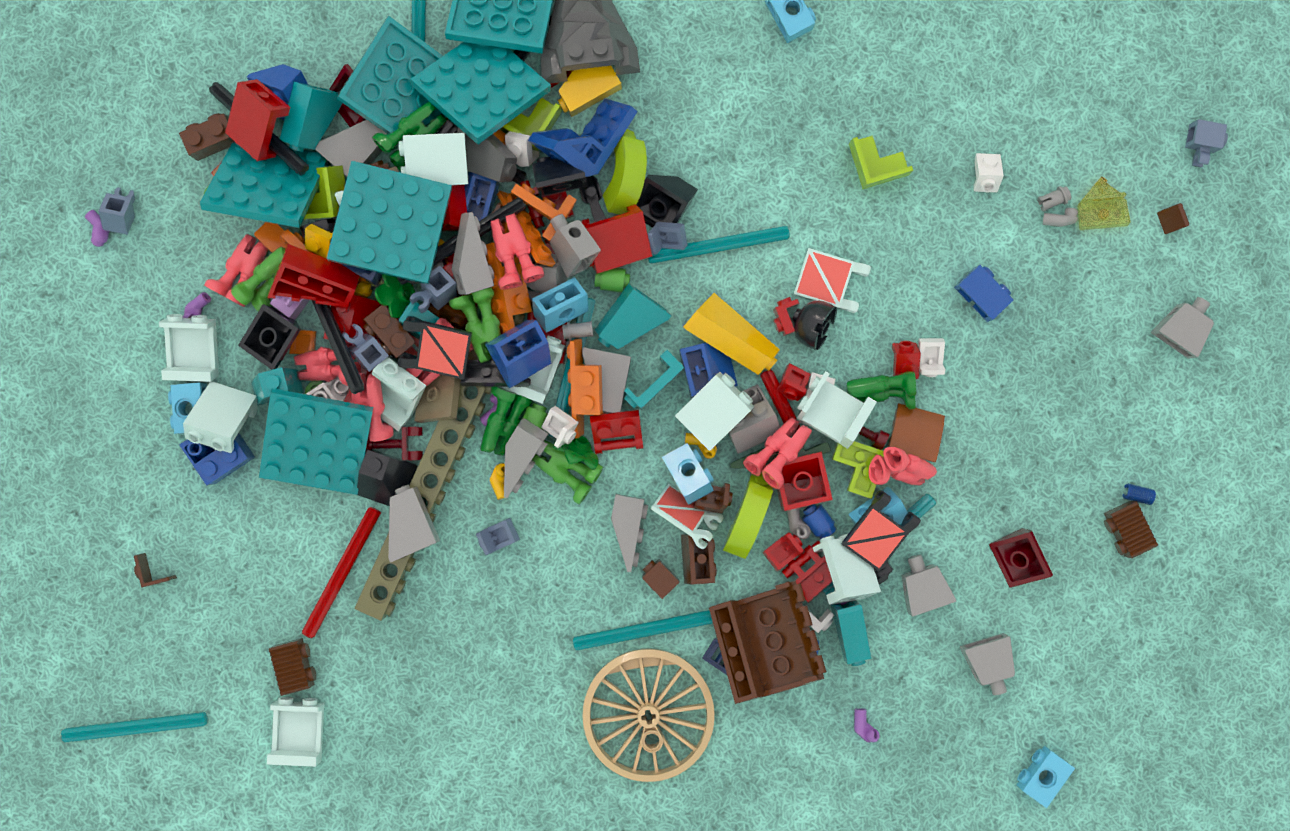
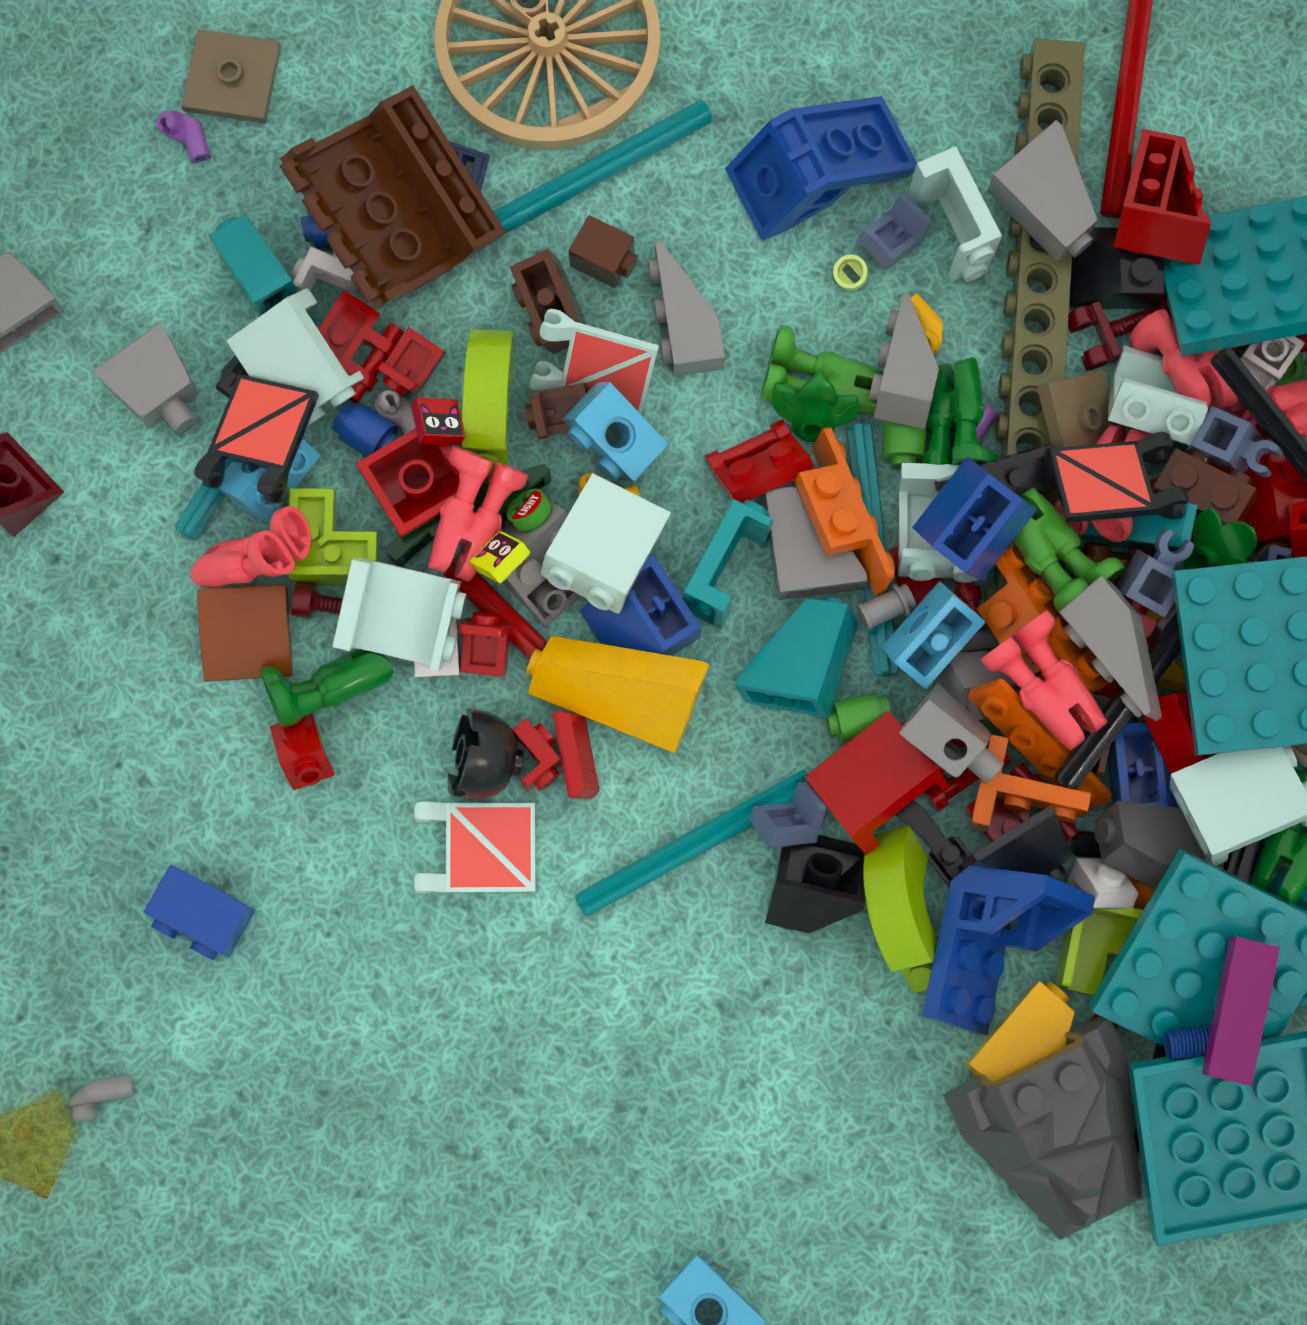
camera: 155 degrees right, 10 degrees down
(349, 499) = (1162, 202): none -> red wedge
(456, 533) = (950, 182): none -> light aqua panel
(478, 55) = (1240, 1010): none -> magenta tile
(507, 52) = (1178, 1038): none -> blue piece
(523, 590) = (814, 157): none -> blue bracket
(534, 520) = (857, 265): none -> yellowish green hinge
(560, 426) = (857, 436): white bracket -> none
(748, 443) = (529, 510): none -> bright green tile
(765, 309) = (576, 755): none -> red tile
(773, 420) = (500, 557): none -> neon yellow tile
(782, 506) = (438, 421): none -> tile
(829, 752) = (231, 76): none -> dark tan plate
(873, 169) = (462, 1069): lime panel -> none
(931, 356) = (258, 768): white bracket -> none
(988, 172) = (256, 1135): white bracket -> none
(1059, 196) = (119, 1130): light grey pin -> none

